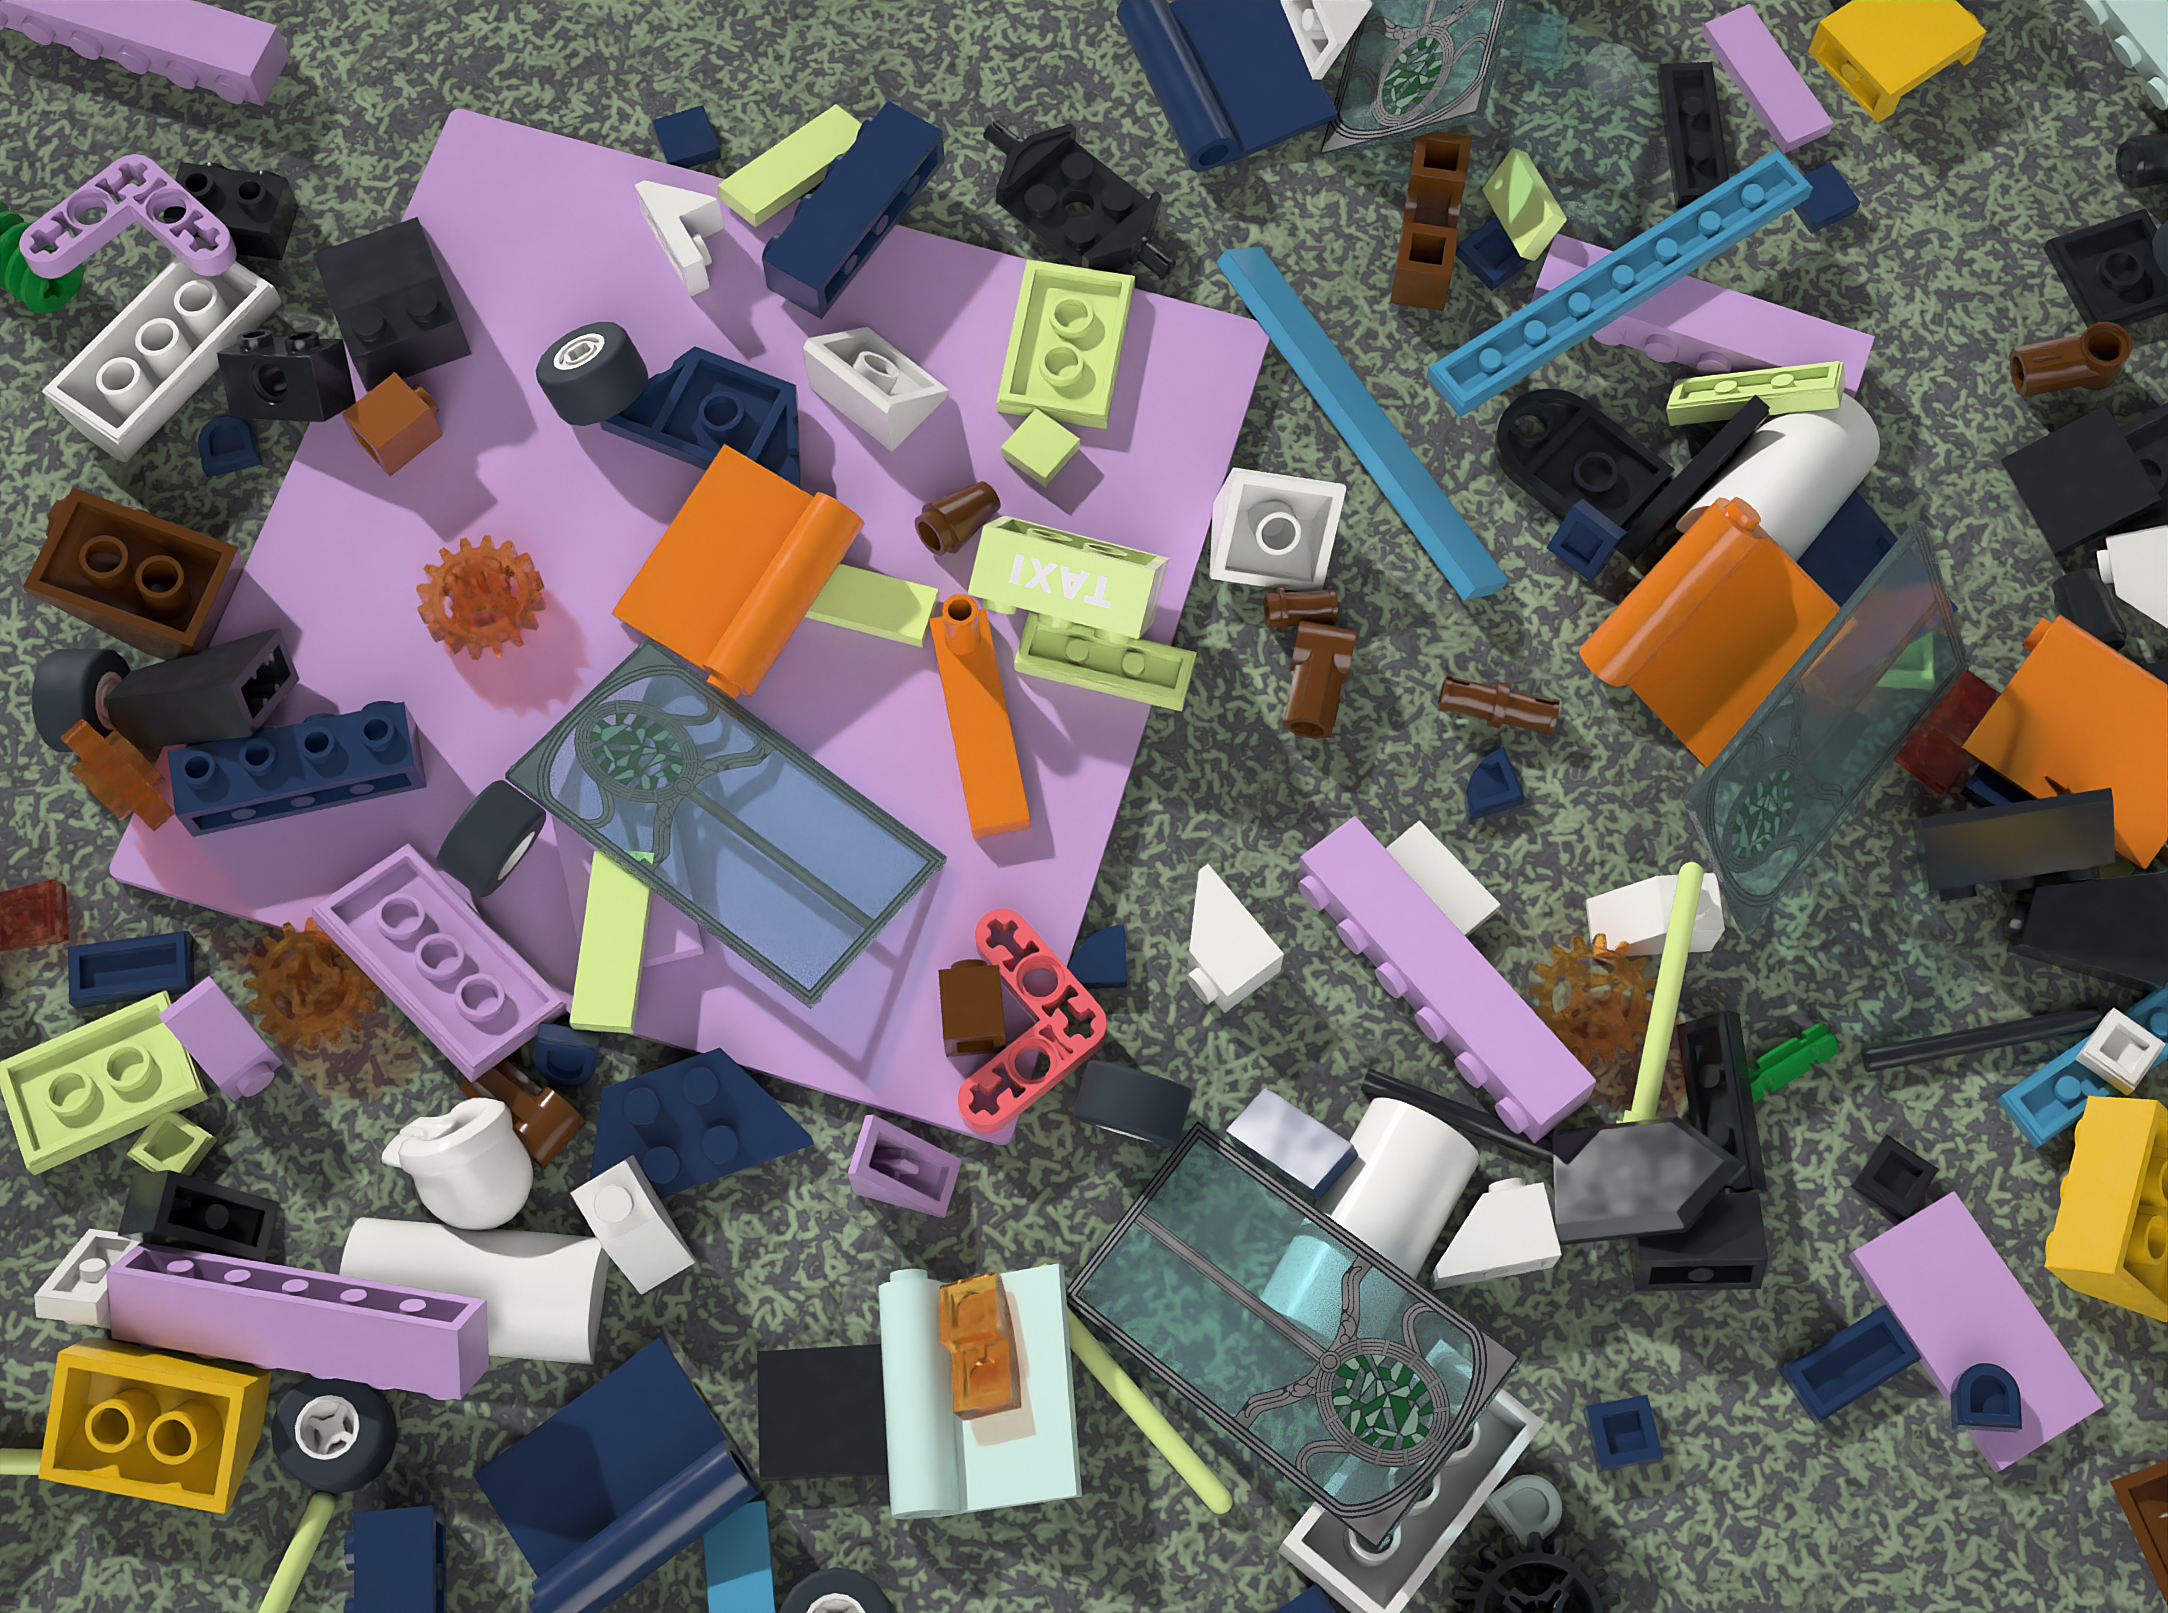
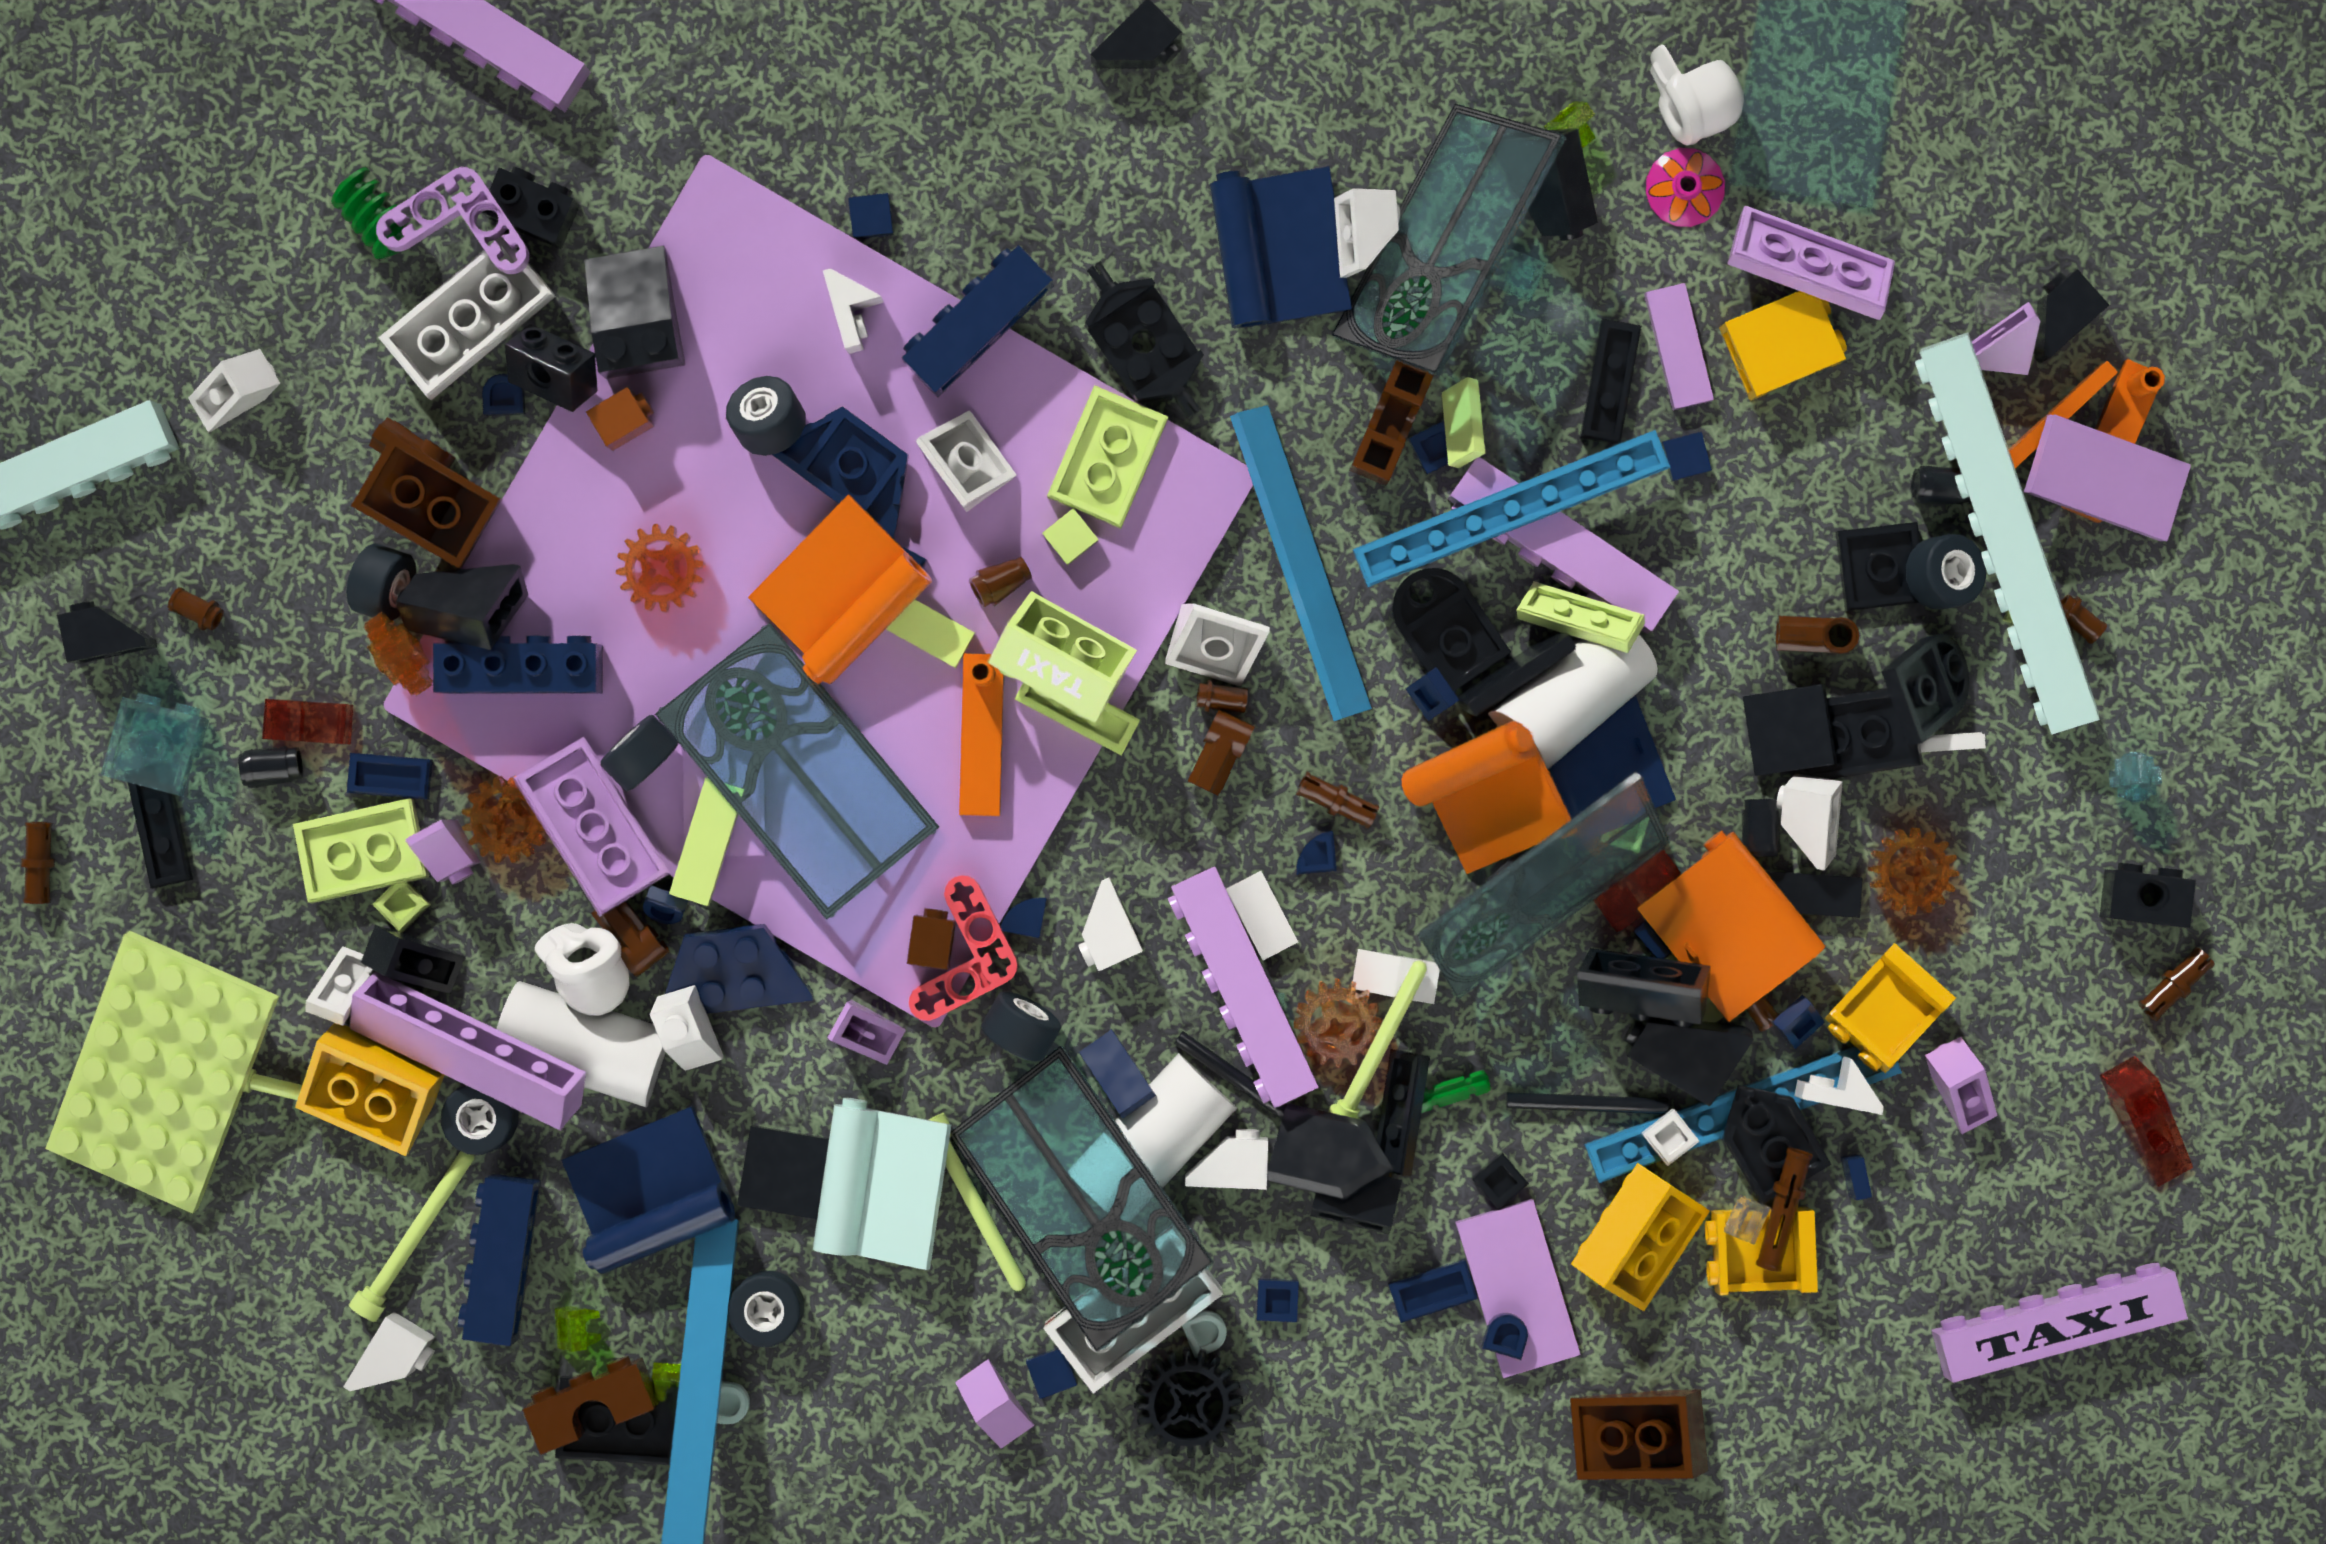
camera: 15 degrees right, 20 degrees up
(789, 167) = (945, 262): yellowish green tile -> none
(983, 1346) = (890, 1164): clear orange slope -> none

